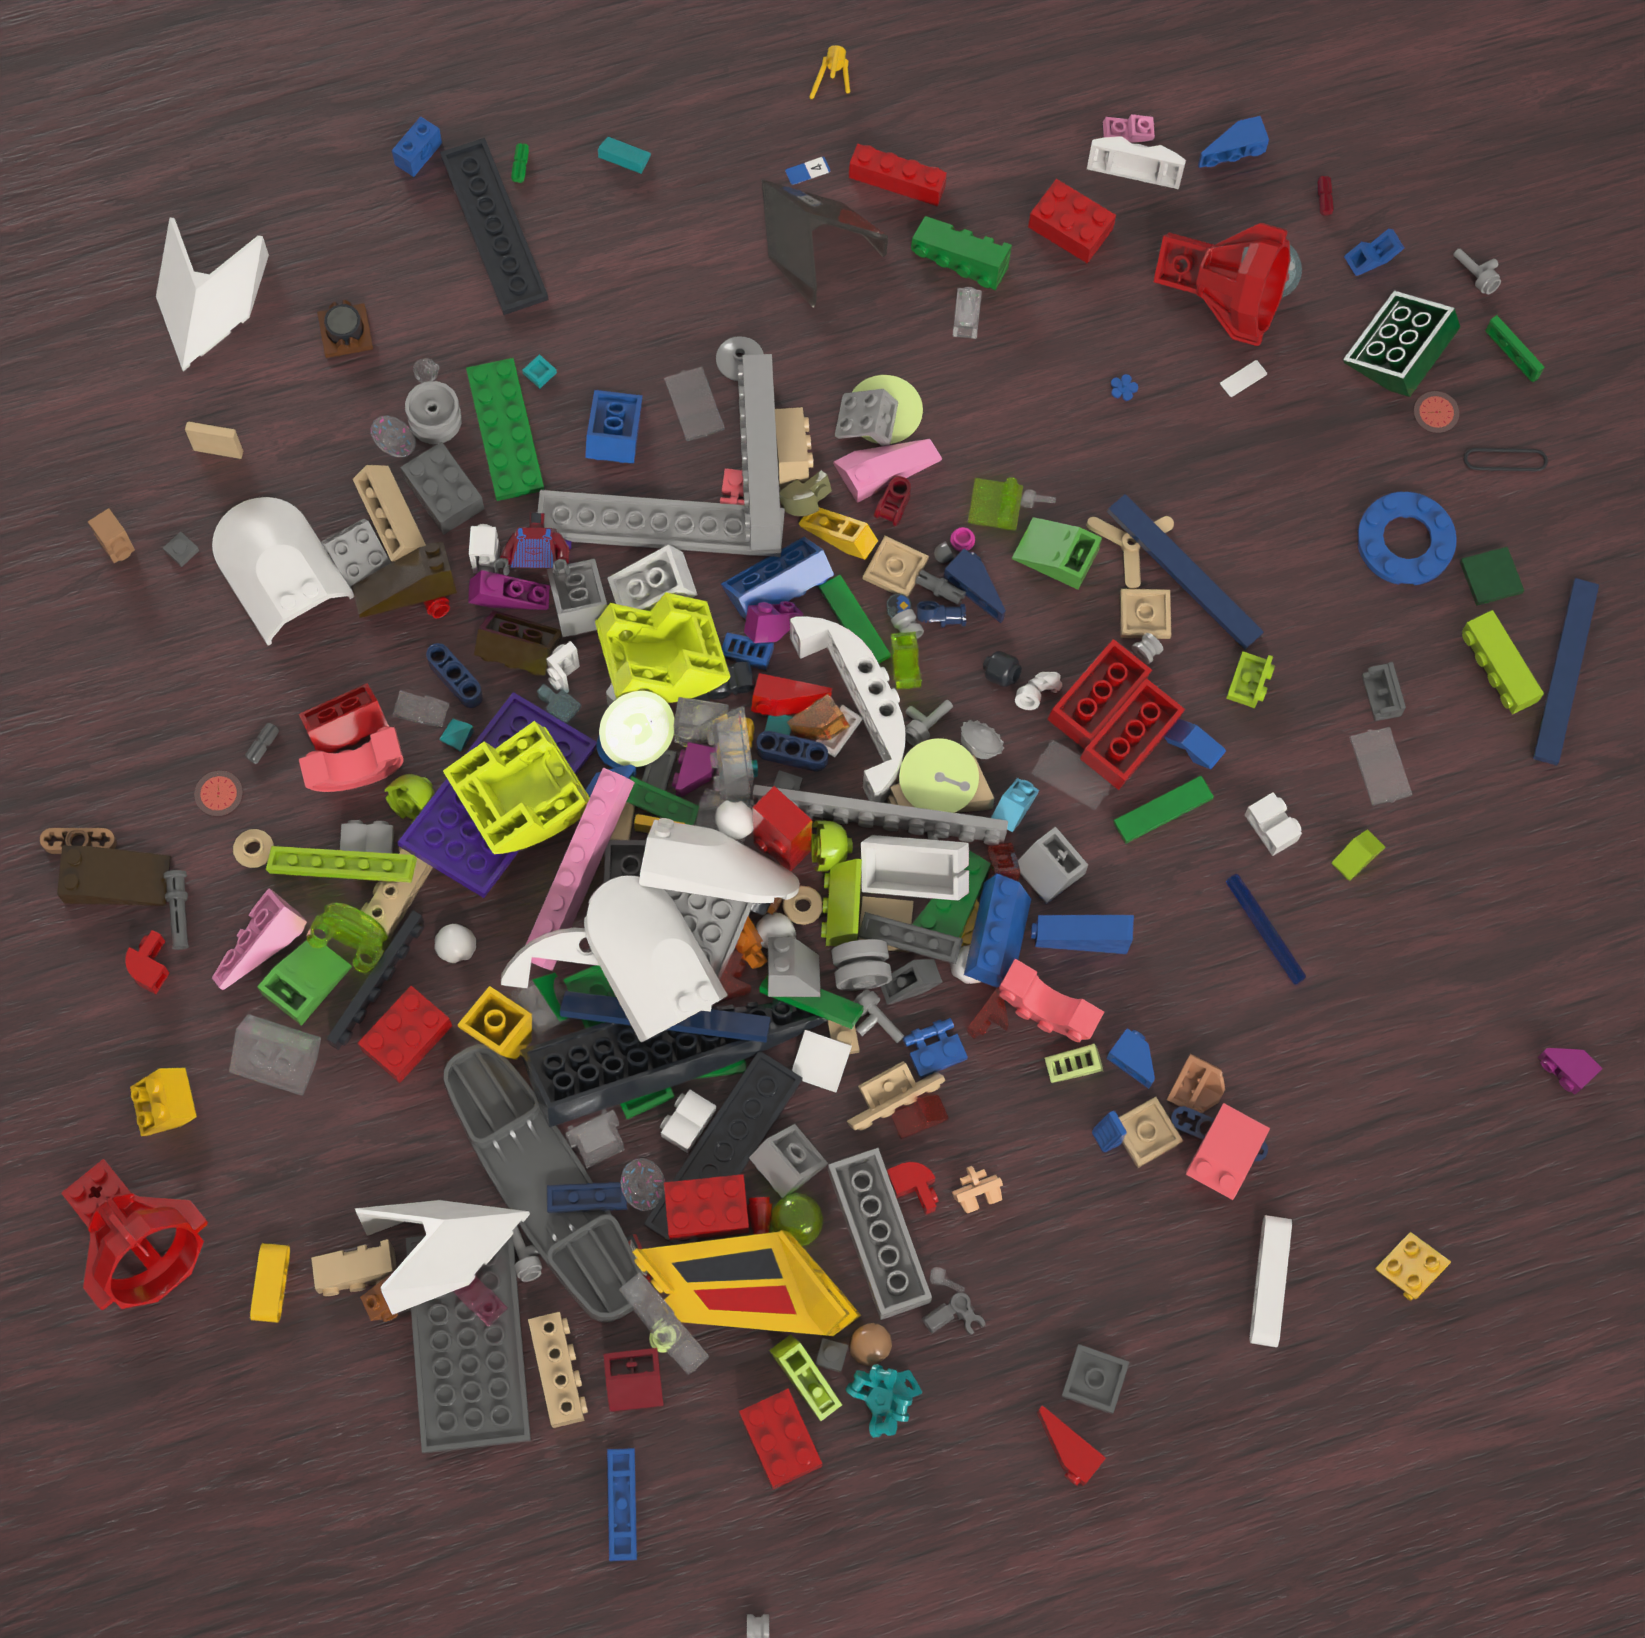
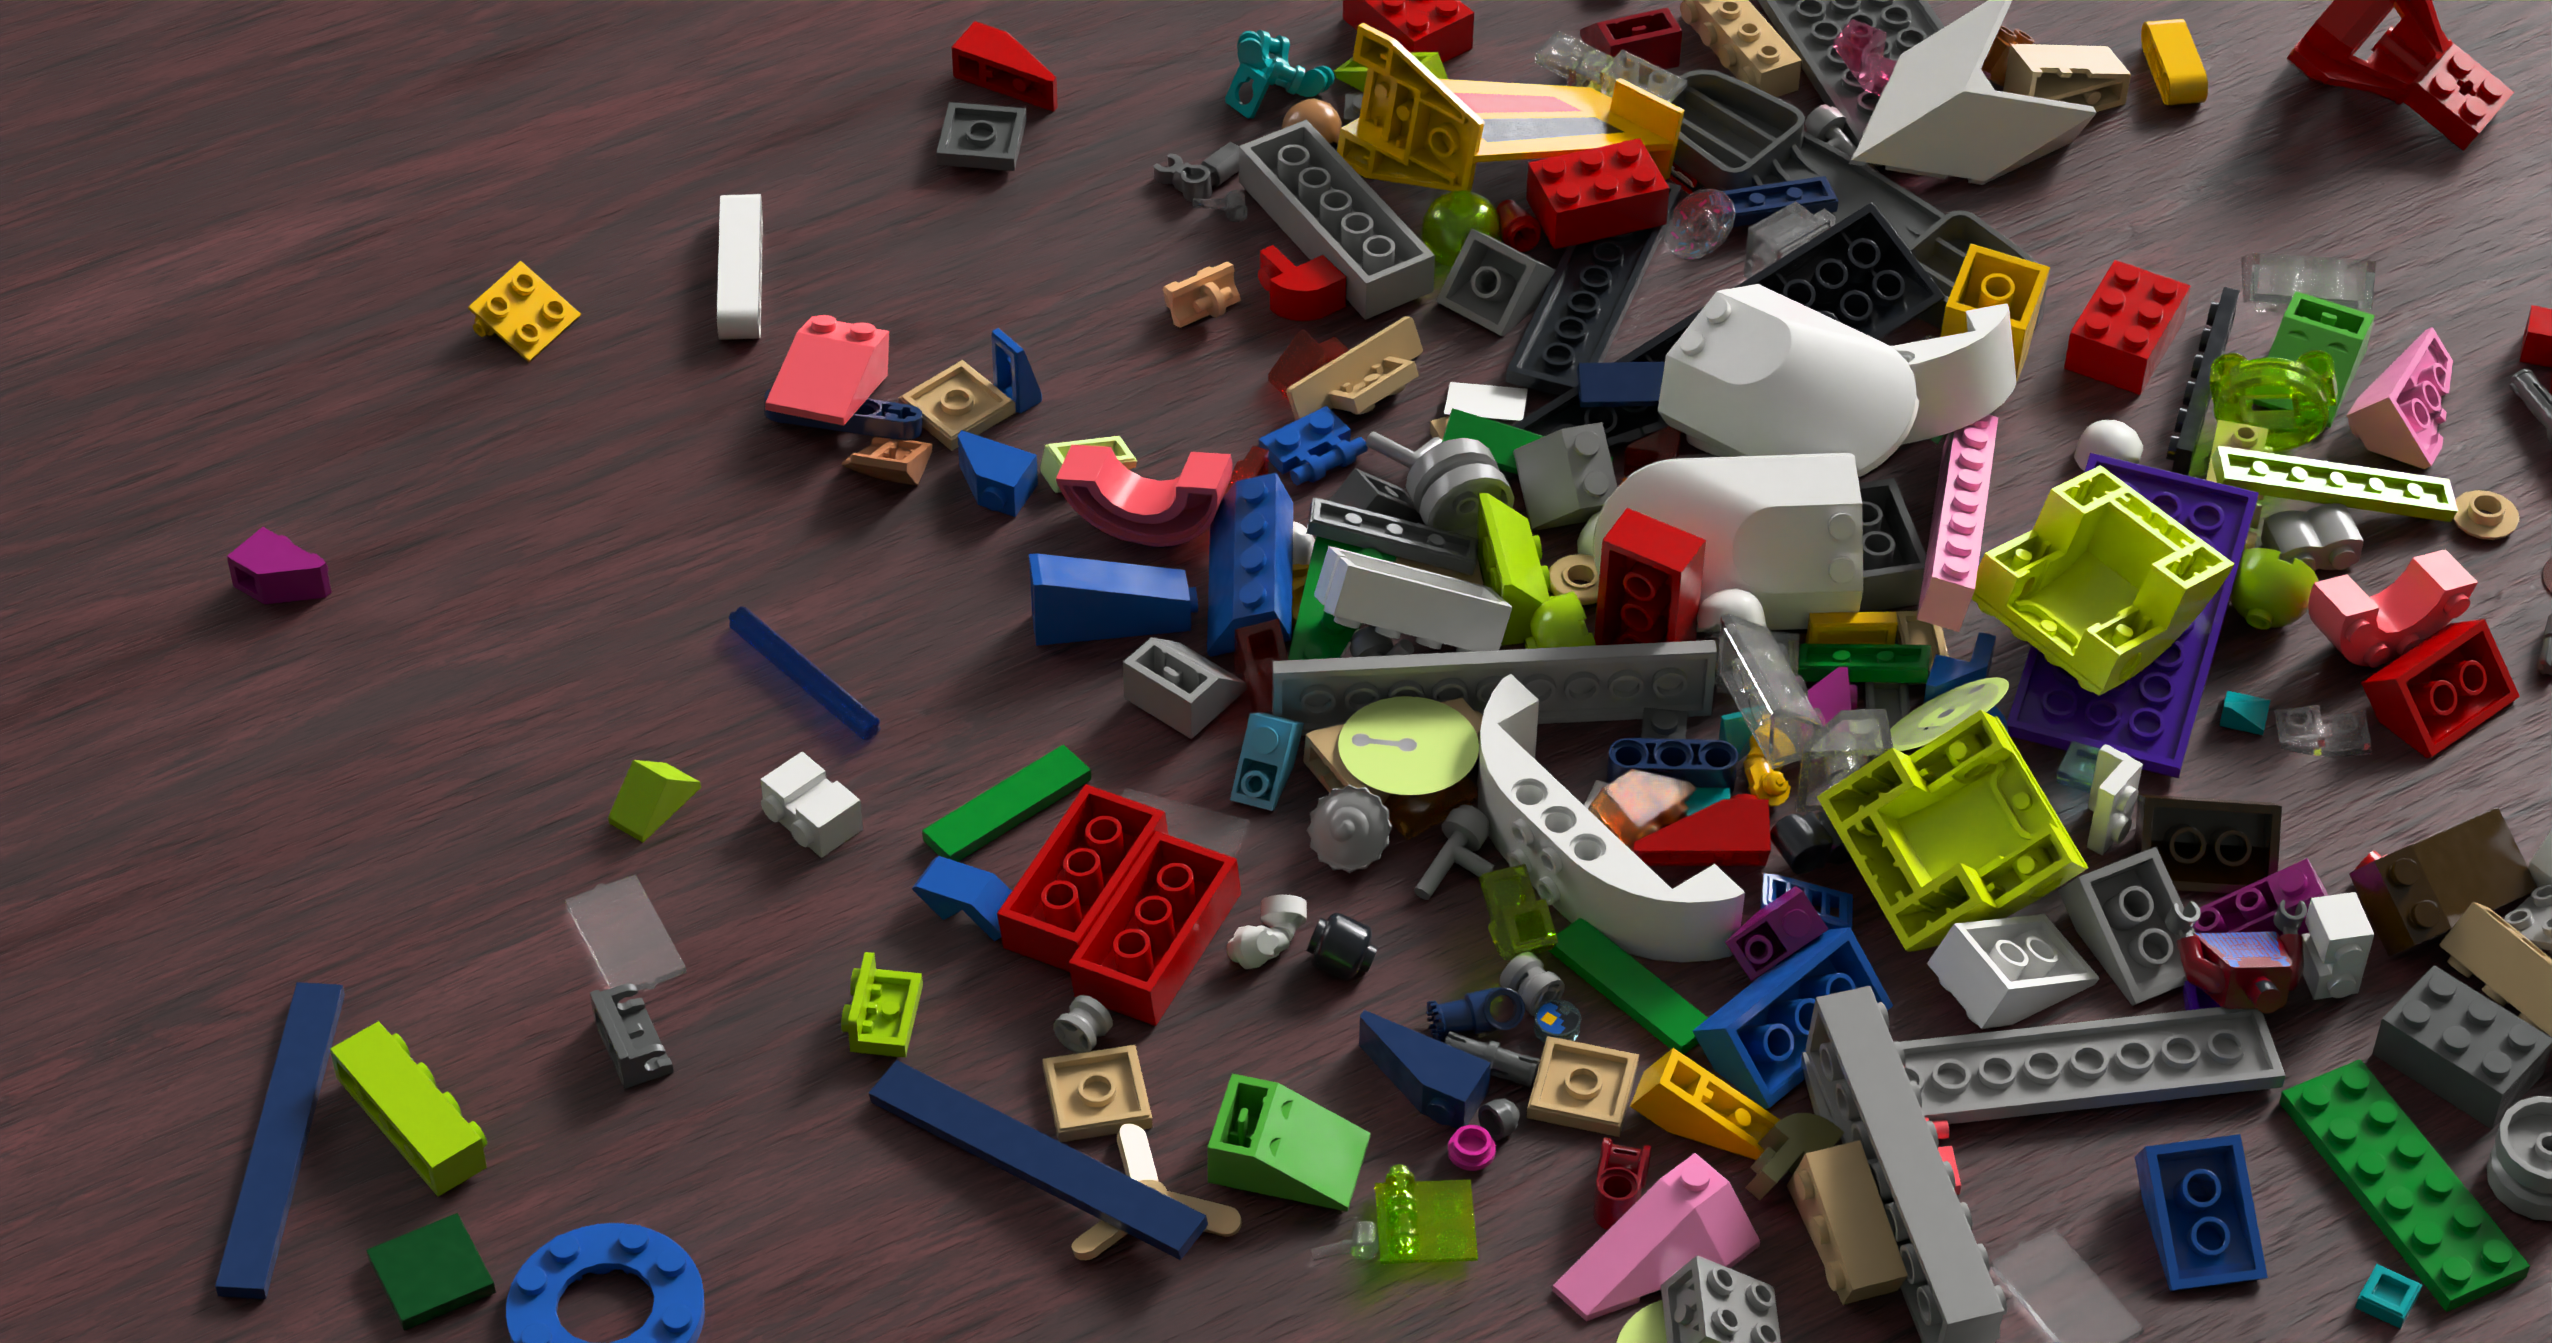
camera: 170 degrees right, 25 degrees down
(163, 1101) = (2435, 206): yellow slope -> none
(450, 665) = (2291, 777): dark blue beam -> none
(687, 1121) = (1661, 299): white brick -> none

